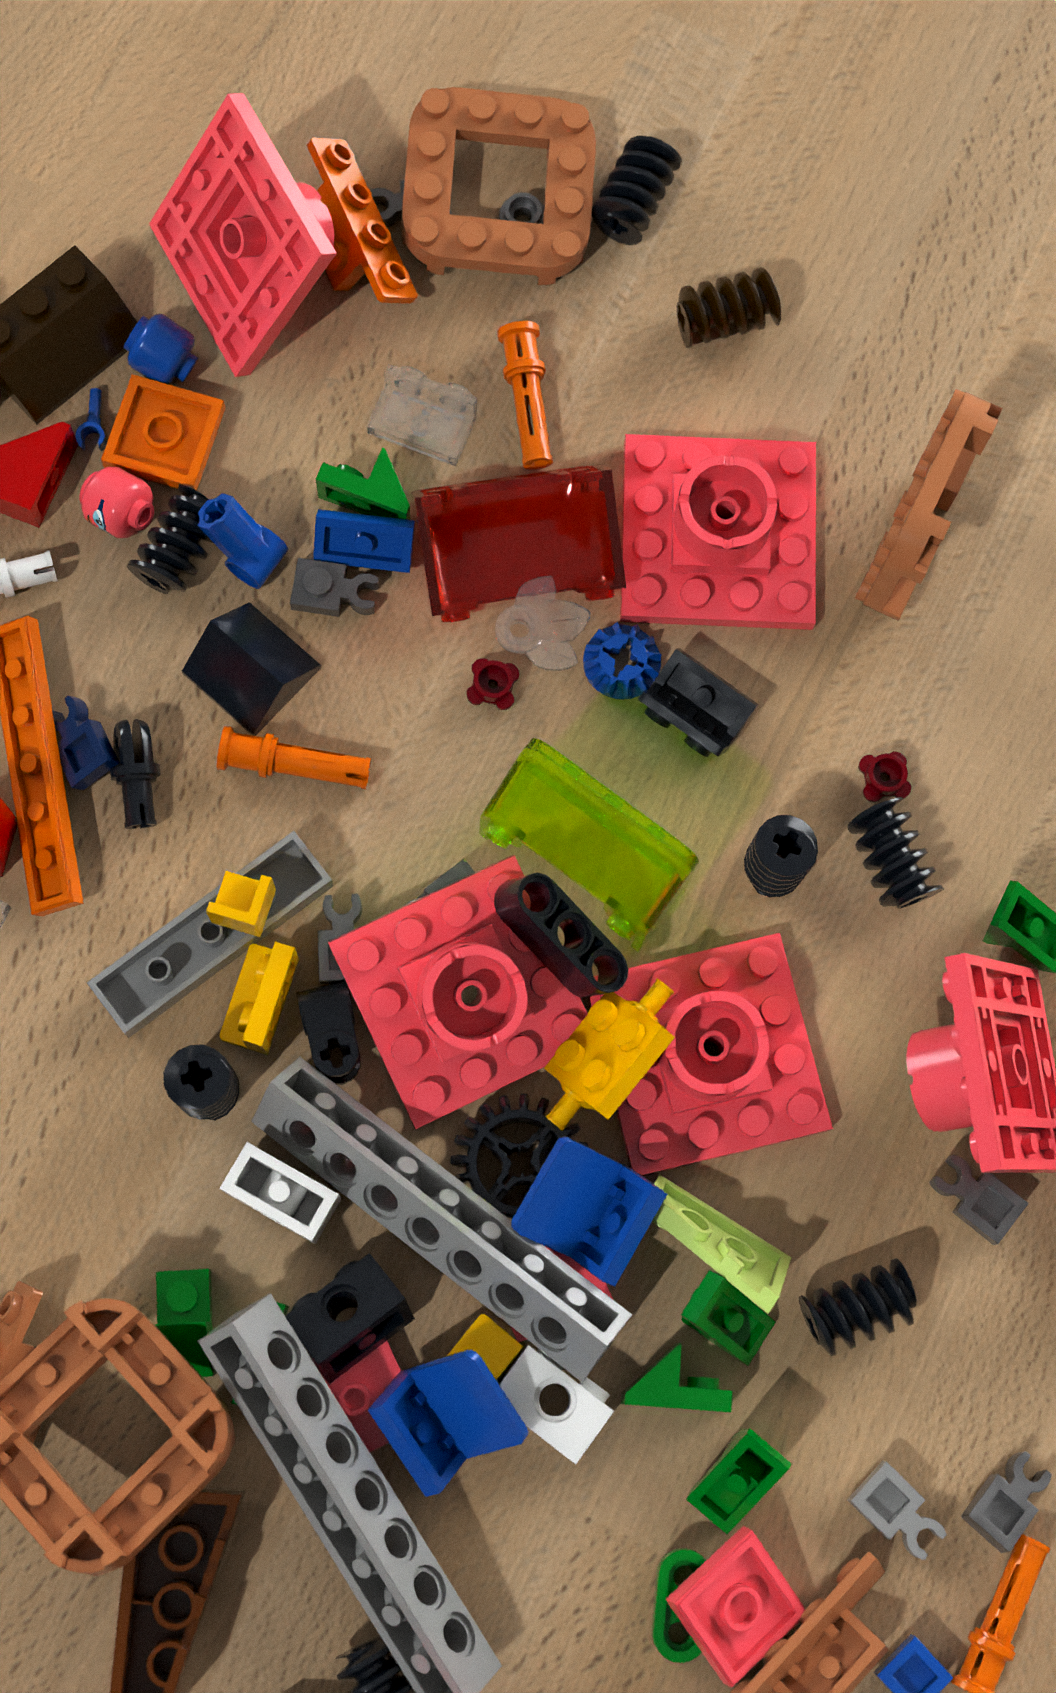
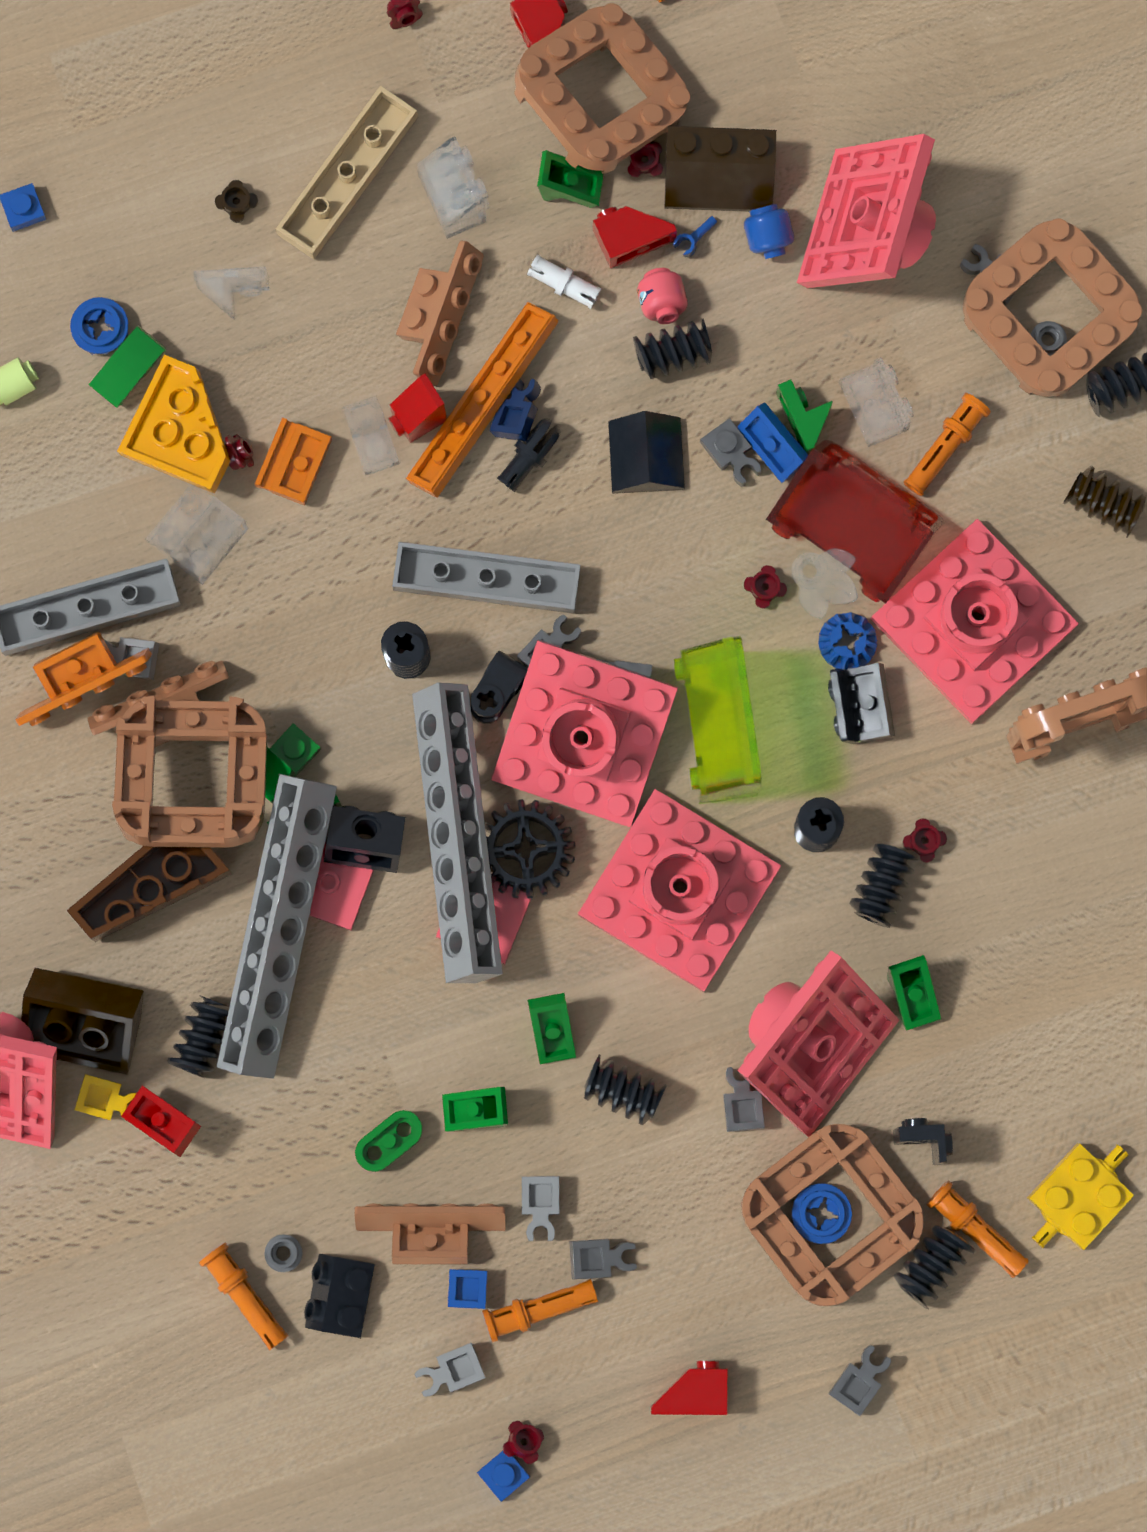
camera: 55 degrees right, 5 degrees up
(163, 433) = (725, 279): orange plate -> none
(242, 903) = (515, 577): yellow panel -> none
(249, 547) = (706, 386): blue piece -> none
(259, 997) = (479, 634): yellow bracket -> none
(270, 756) = (608, 511): orange pin -> none
(281, 1193) = (391, 744): white brick -> none
(359, 231) = (945, 260): orange bracket -> none
(445, 1415) = (362, 933): blue bracket -> none
(491, 1343) = (411, 923): yellow panel -> none
(577, 1425) = (420, 1004): white brick -> none
(583, 940) = (668, 766): black beam -> none
(588, 1209) = (534, 901): blue bracket -> none
(609, 1053) = (622, 835): yellow plate -> none
(661, 1388) = (483, 1028): green slope -> none
(724, 1245) = (586, 989): yellowish green wing -> none
(736, 1606) = (414, 1166): coral plate -> none

